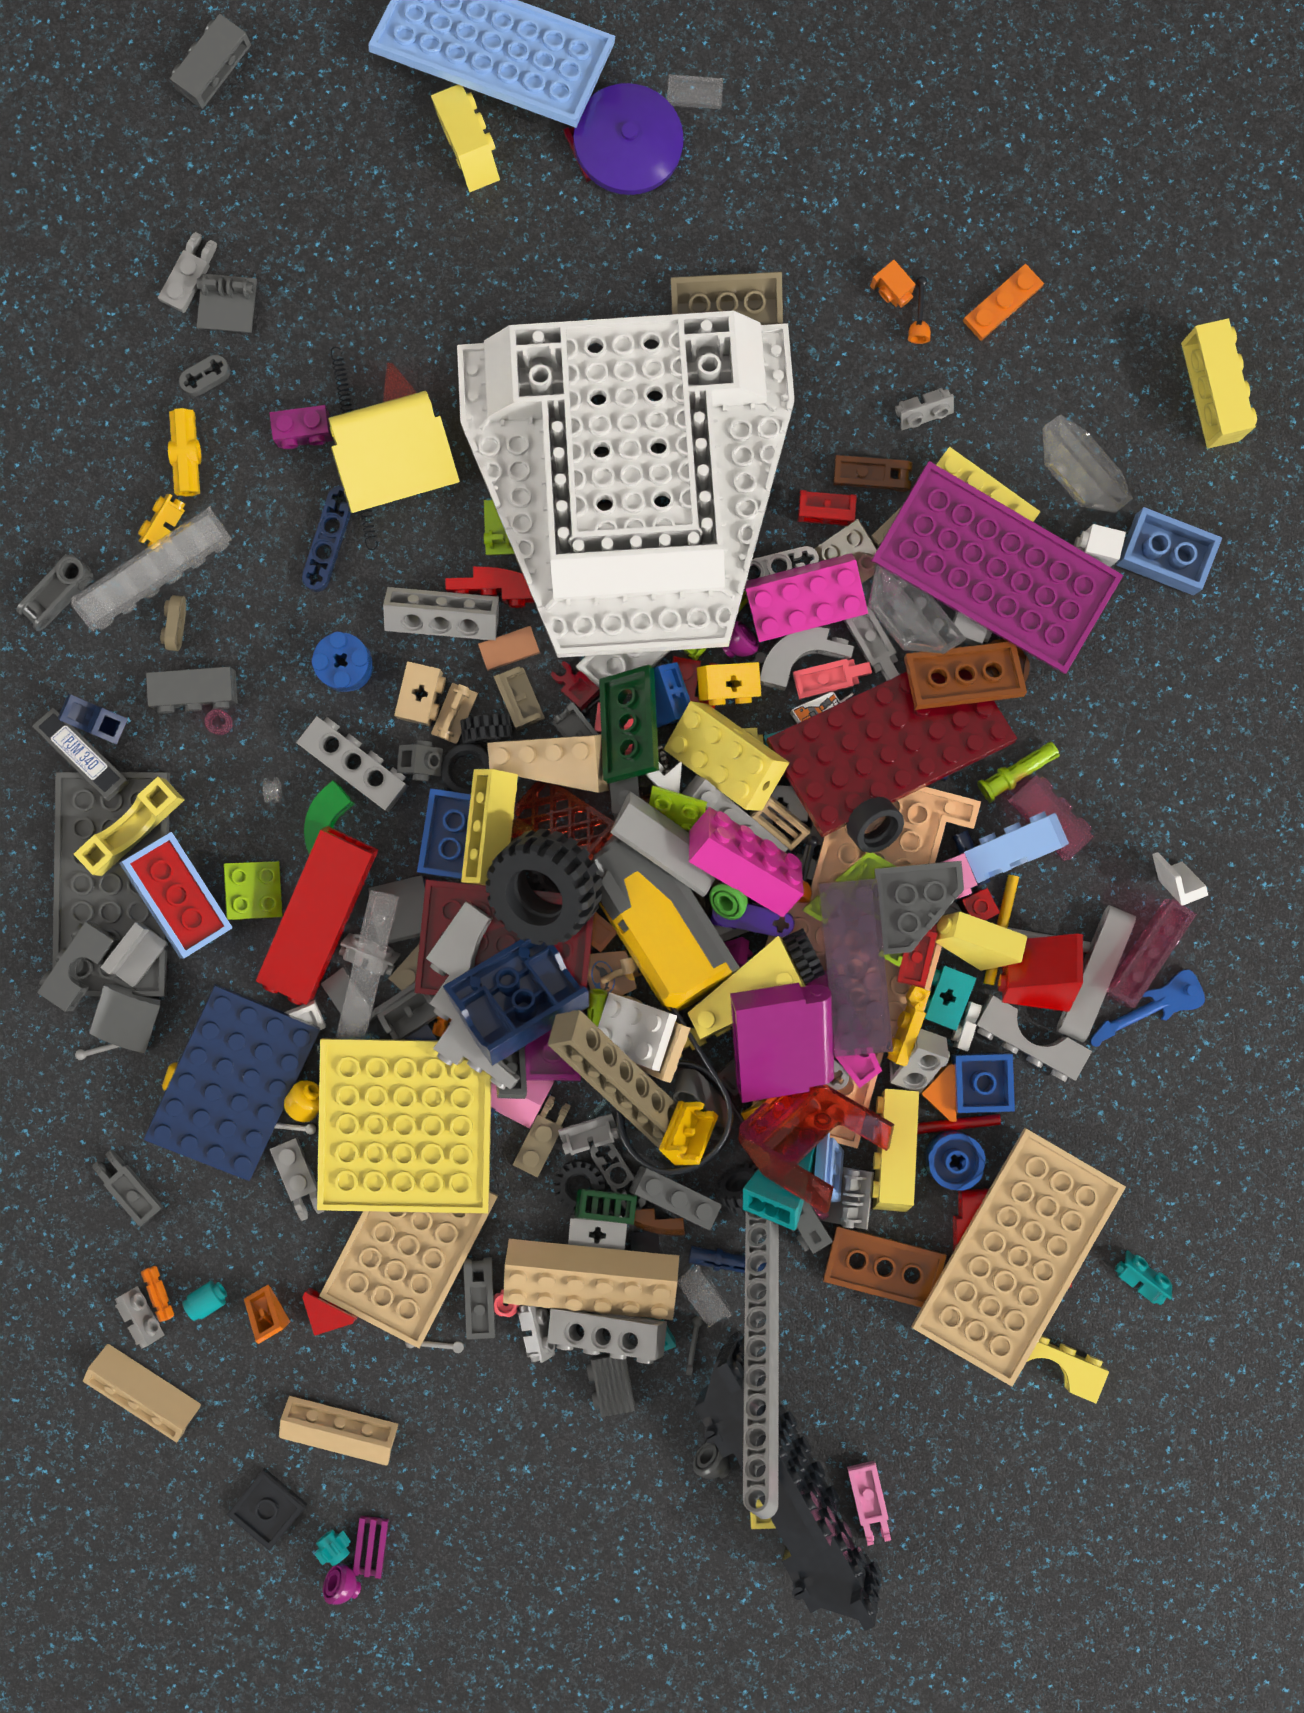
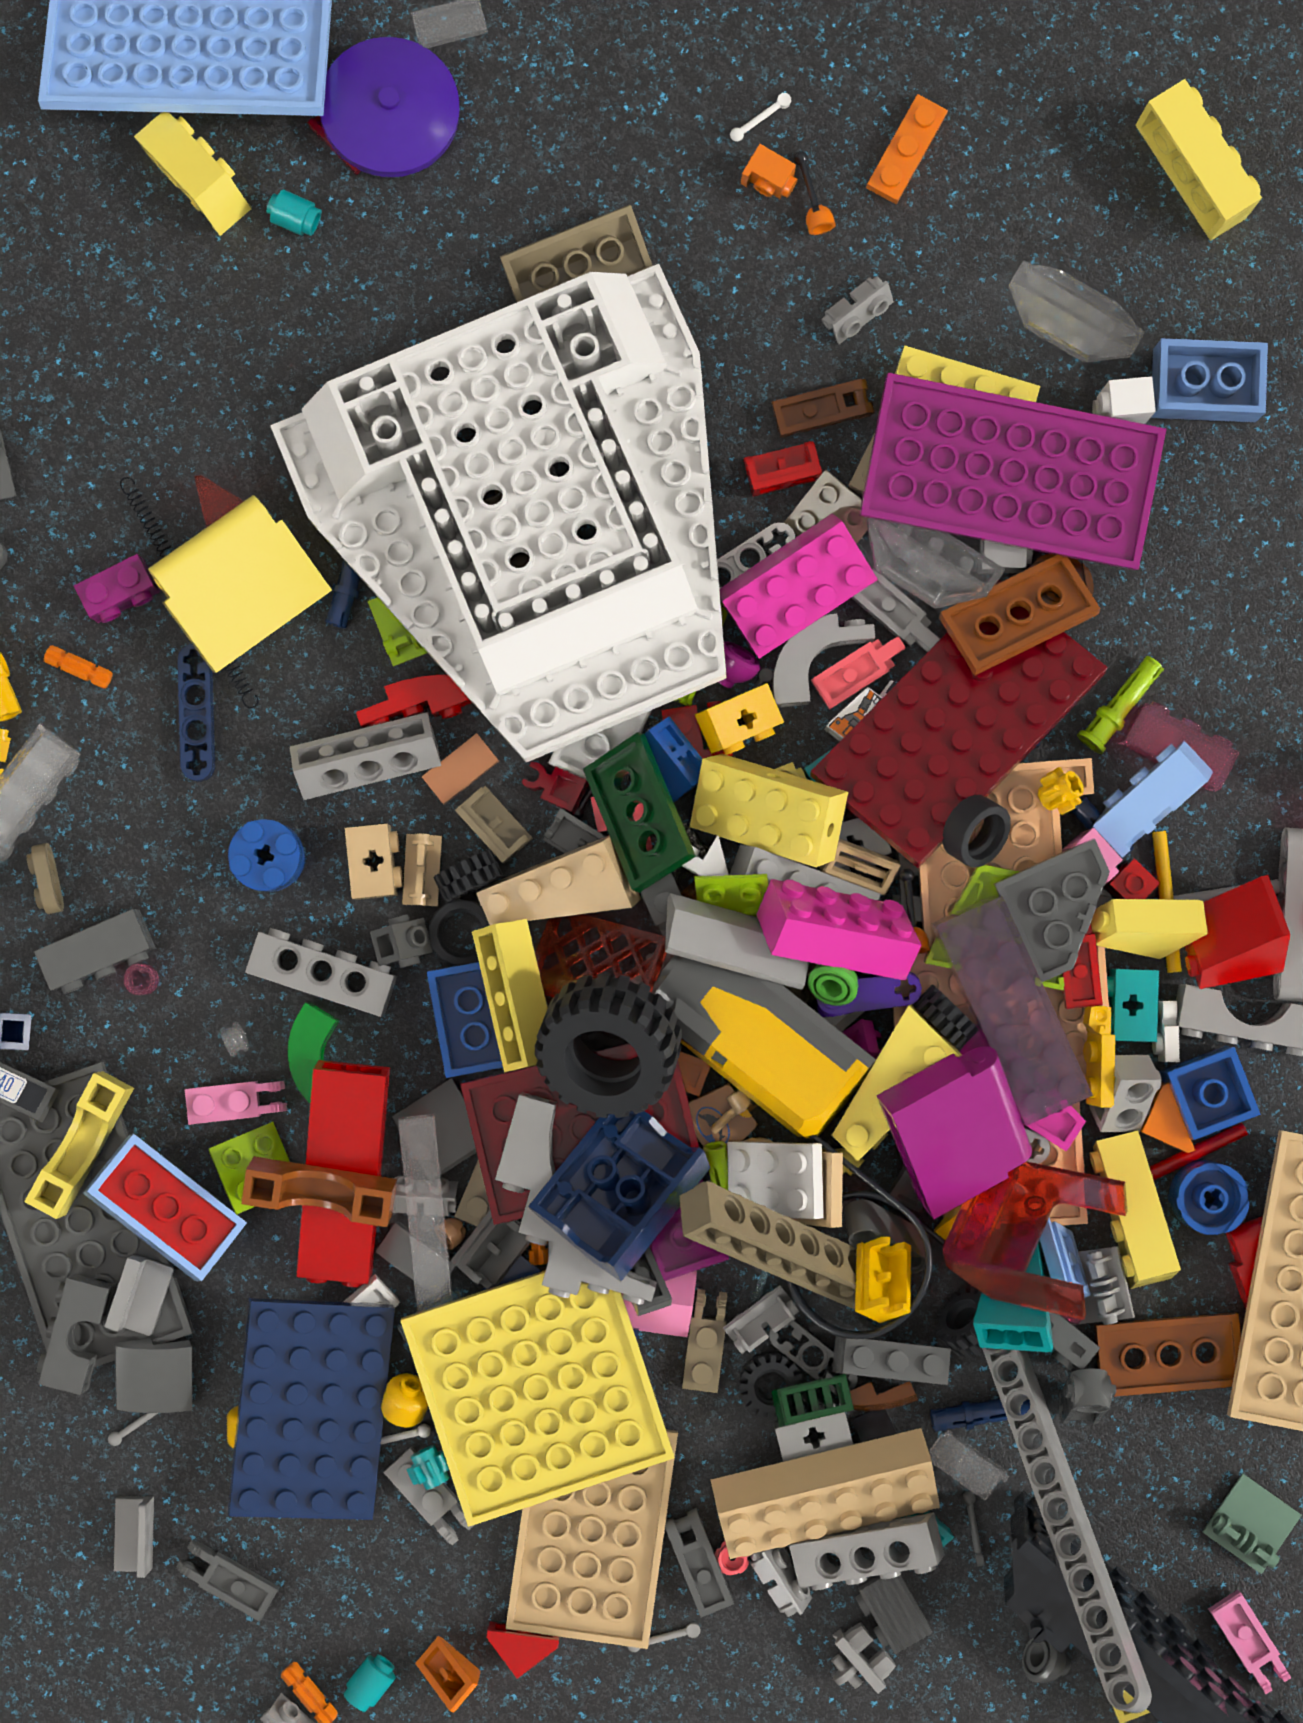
camera: 25 degrees left, 0 degrees up
(69, 1130) = (134, 1534): none -> light grey panel
(252, 474) = (78, 666): none -> orange axle
(252, 835) = (230, 1101): none -> bright pink hinge
(303, 1156) = (428, 1467): none -> teal gear
(316, 932) = (353, 1194): none -> dark orange arch
(384, 990) = (454, 1232): none -> medium nougat hinge
(467, 490) = (344, 594): none -> dark blue pin
(529, 193) = (293, 213): none -> teal brick
(571, 1399) = (851, 1645): none -> light grey hips
(810, 1274) = (1086, 1396): none -> dark grey piece
(902, 1415) = (1252, 1524): none -> sand green hinge
(923, 235) = (783, 102): none -> white hinge
(948, 817) = (1060, 791): none -> yellow gear

